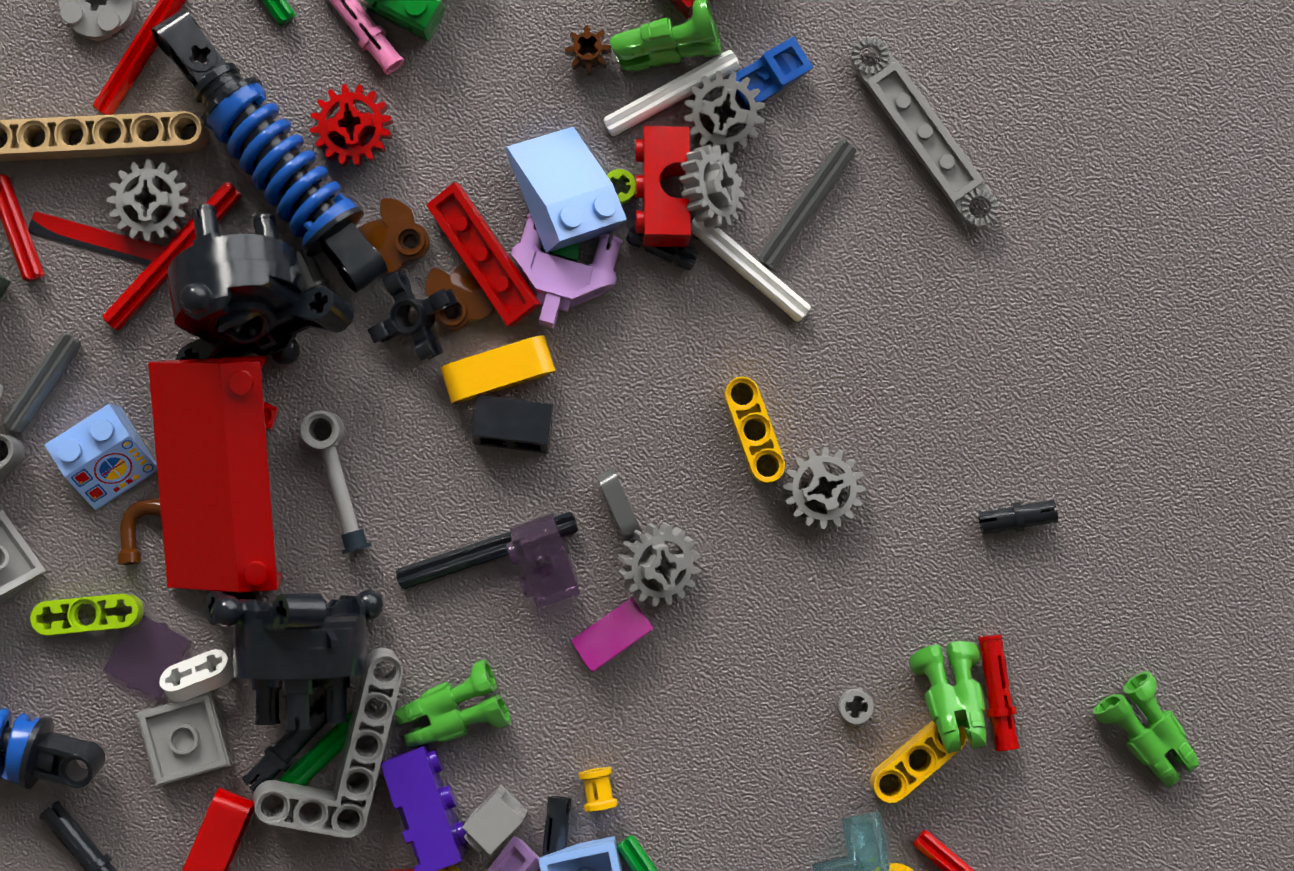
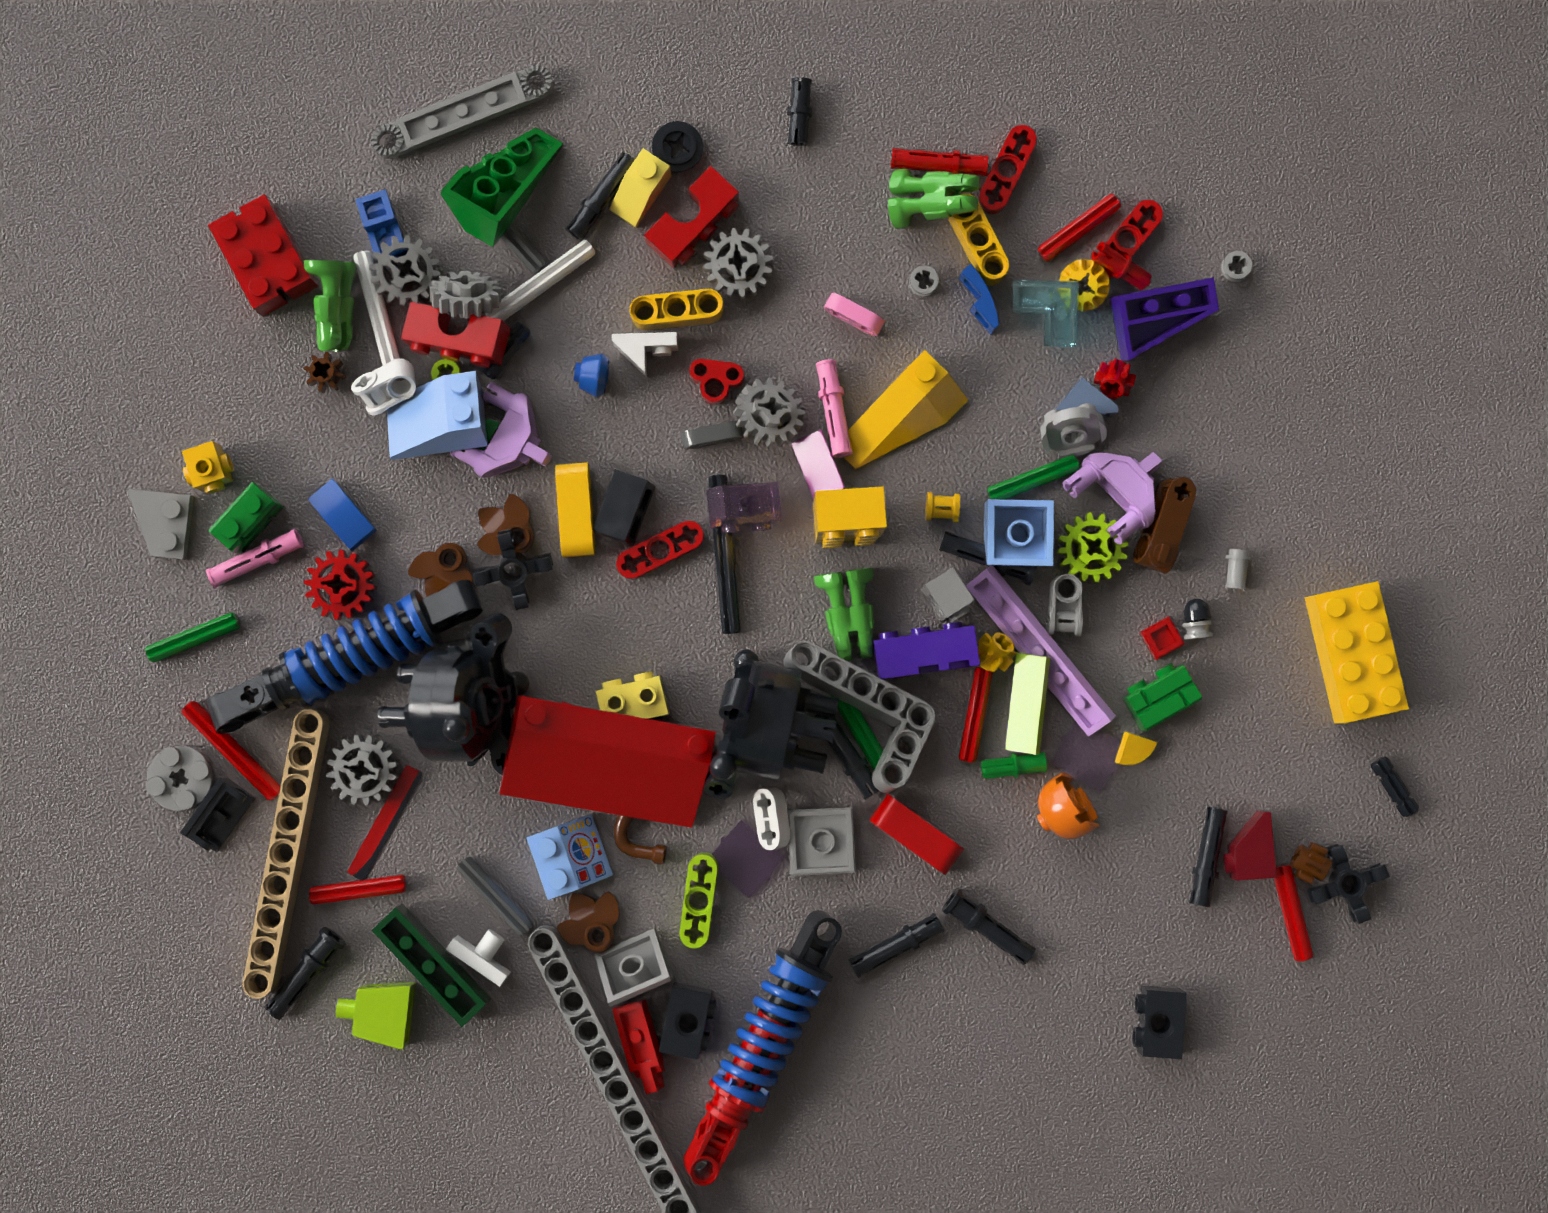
camera: 75 degrees left, 0 degrees up
(41, 493) = (589, 916): none -> reddish brown plate
(64, 53) = (218, 814): none -> black hinge
(157, 270) = (416, 767): red axle -> none
(295, 488) = (640, 698): none -> light yellow brick
(353, 537) = (687, 662): light grey piece -> none
(432, 108) = (342, 514): none -> blue slope
(464, 448) = (647, 544): none -> red beam
(483, 254) = (475, 498): red plate -> none
(551, 688) = (849, 516): none -> yellow brick
(588, 124) = (382, 390): none -> white piece
(656, 352) = (592, 374): none -> blue cone
(689, 634) = (832, 394): none -> bright pink pin
(693, 493) = (716, 372): none -> red piece
(701, 394) = (636, 345): none -> white slope
(704, 724) = (910, 407): none -> yellow wedge
(796, 635) = (854, 314): none -> bright pink beam
(834, 411) = (676, 240): none -> red arch
(840, 191) = (496, 189): none -> green wedge
(840, 785) = (984, 307): none -> blue slope
(856, 310) = (593, 207): none -> black pin
(884, 355) = (640, 187): none -> light yellow slope
(957, 376) = (672, 133): none -> black gear
(1034, 789) = (1024, 153): none -> red beam
(1156, 738) = (1007, 46): bright green piece -> none

